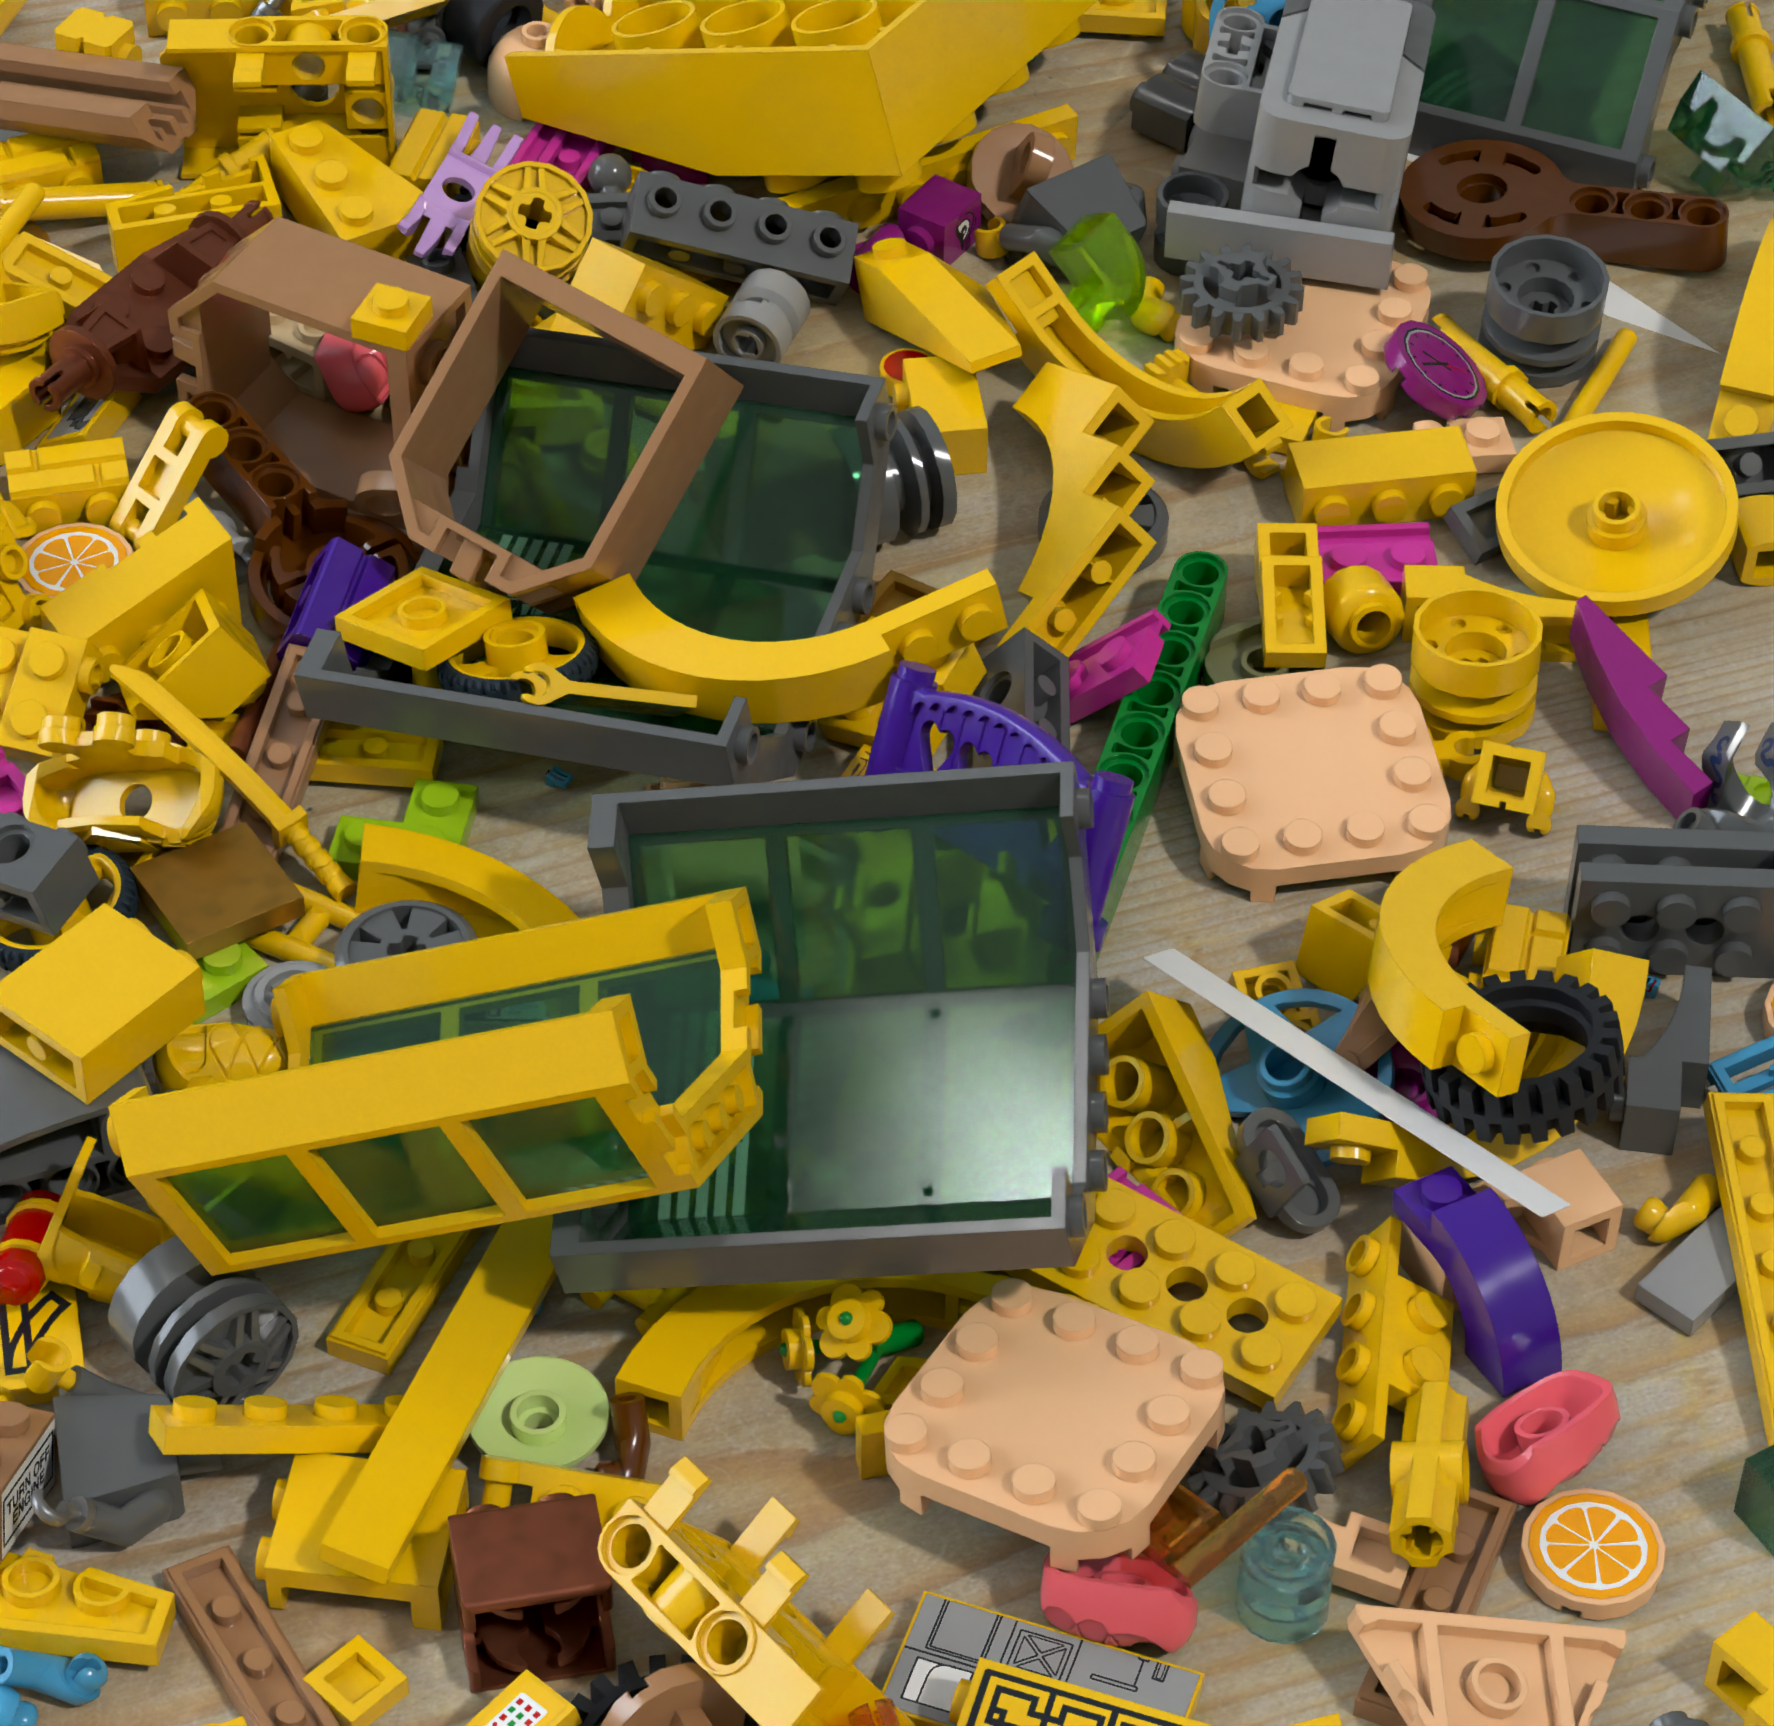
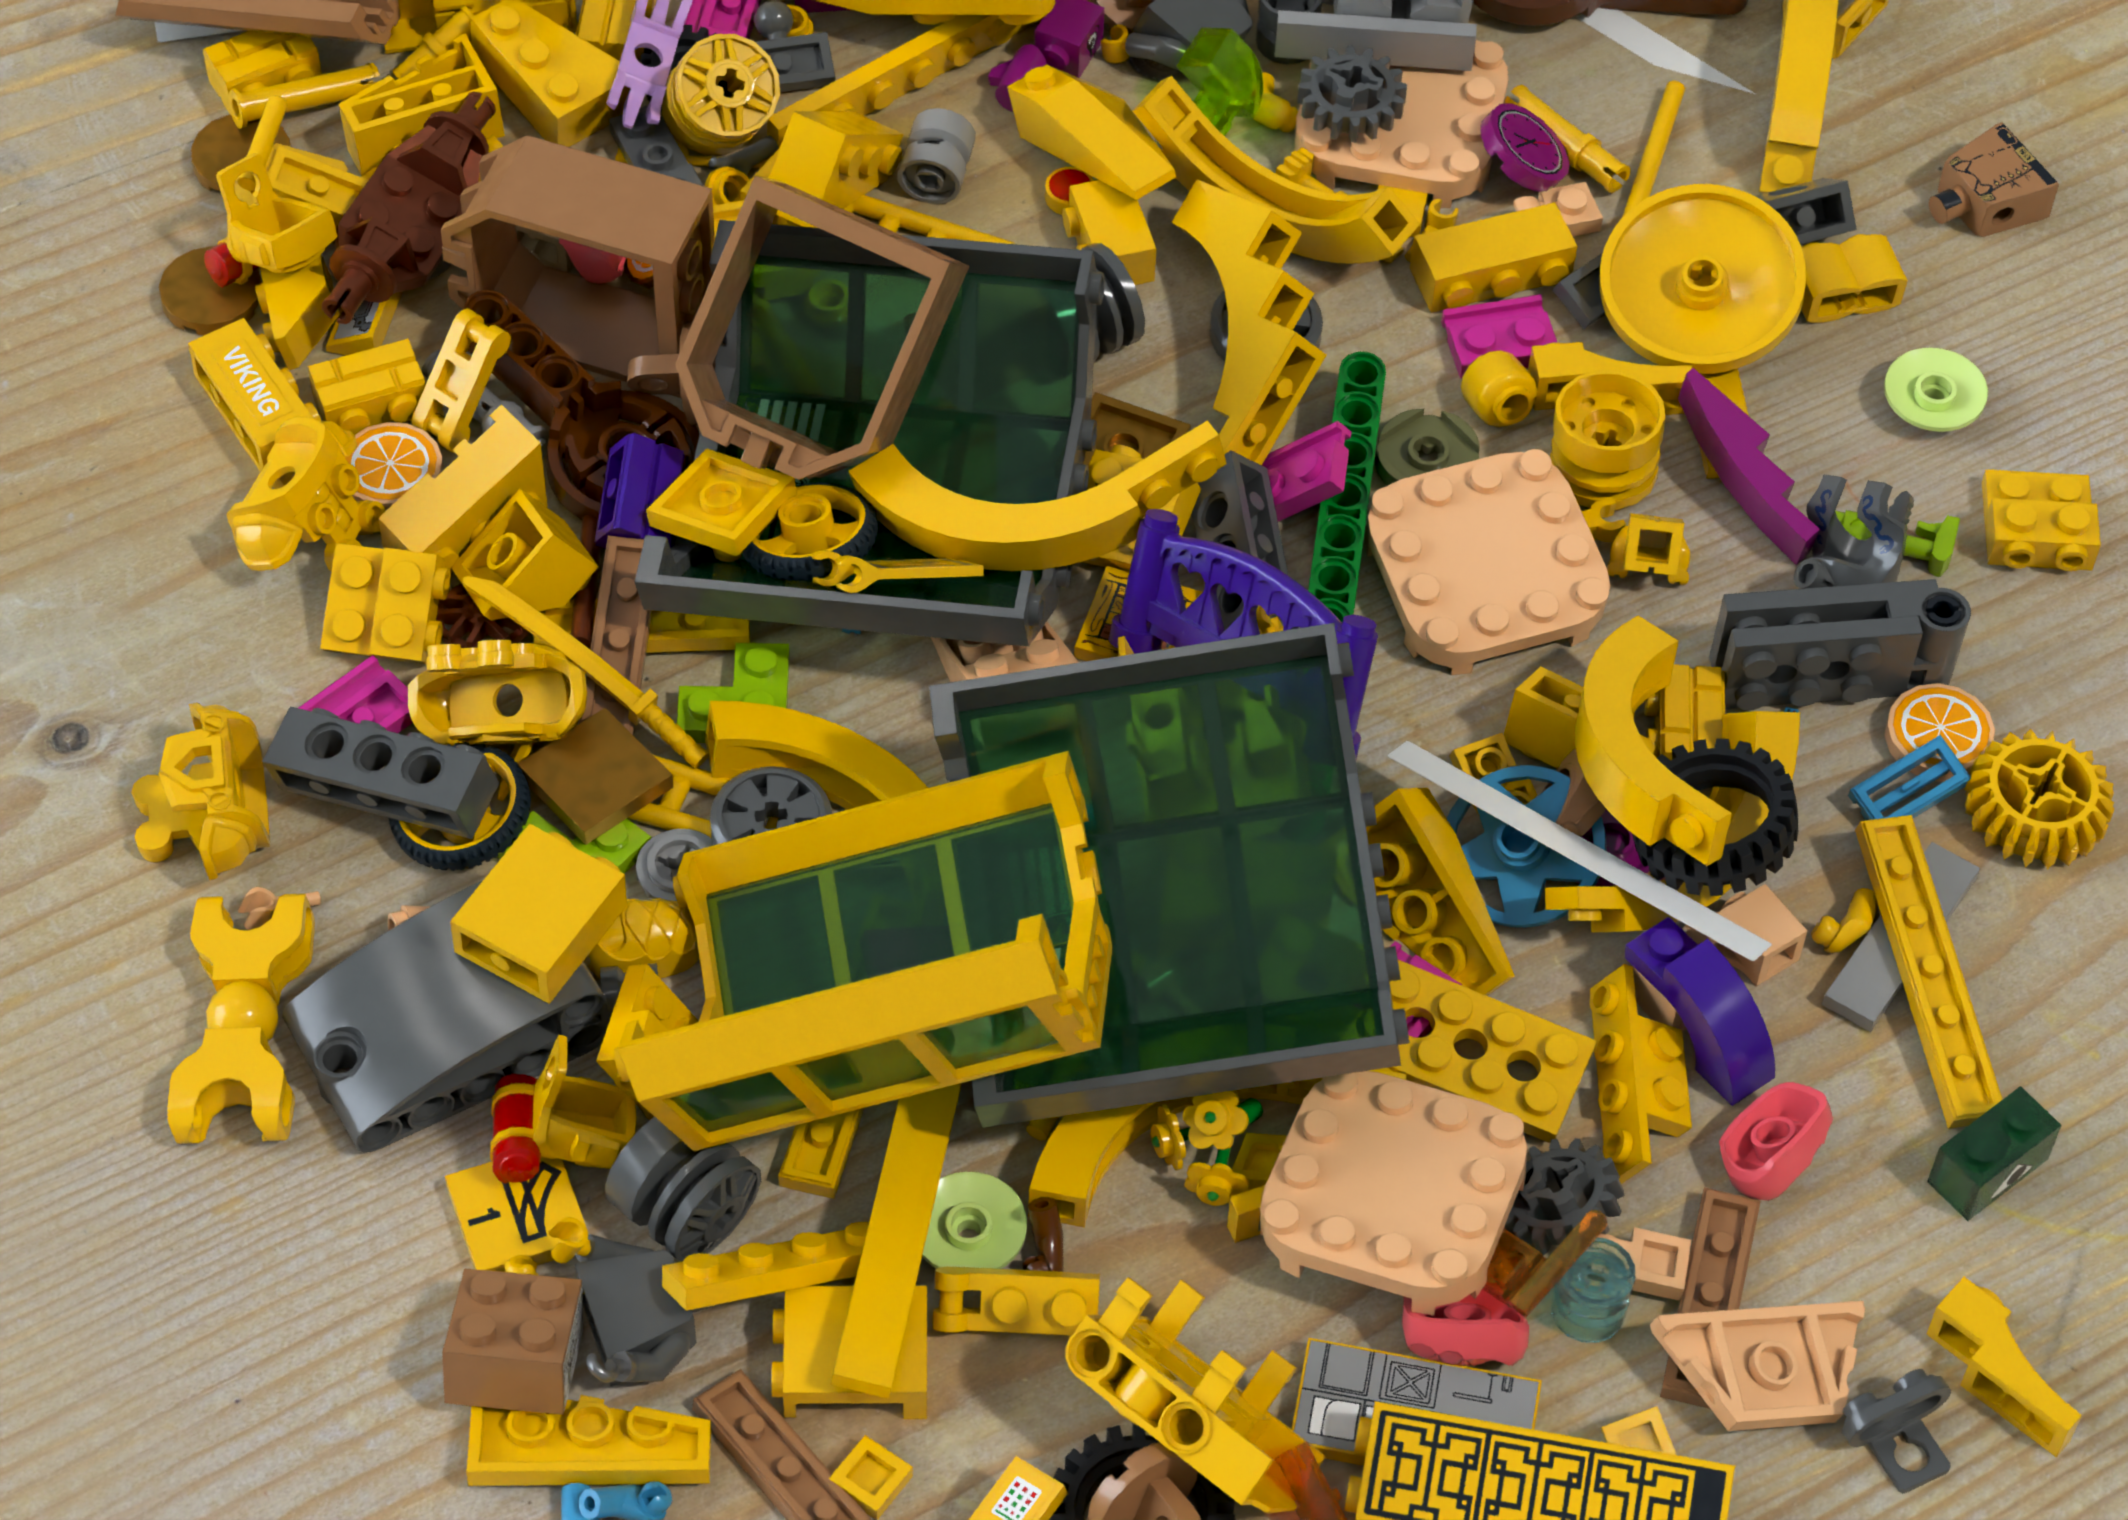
camera: 10 degrees left, 10 degrees up
(391, 317) = (653, 231): yellow plate -> none
(532, 1591) = (1003, 1385): copper piece -> none
(733, 234) = (903, 77): dark grey brick -> none
(1285, 1172) = (1529, 932): dark grey bracket -> none
(1290, 595) = (1440, 384): yellow slope -> none
(1429, 1475) = (1692, 1189): yellow piece -> none
(1545, 308) = (1608, 75): dark grey wheel -> none
(1592, 1553) = (1824, 1235): tile -> none
(1668, 1074) = (1827, 796): dark grey slope -> none

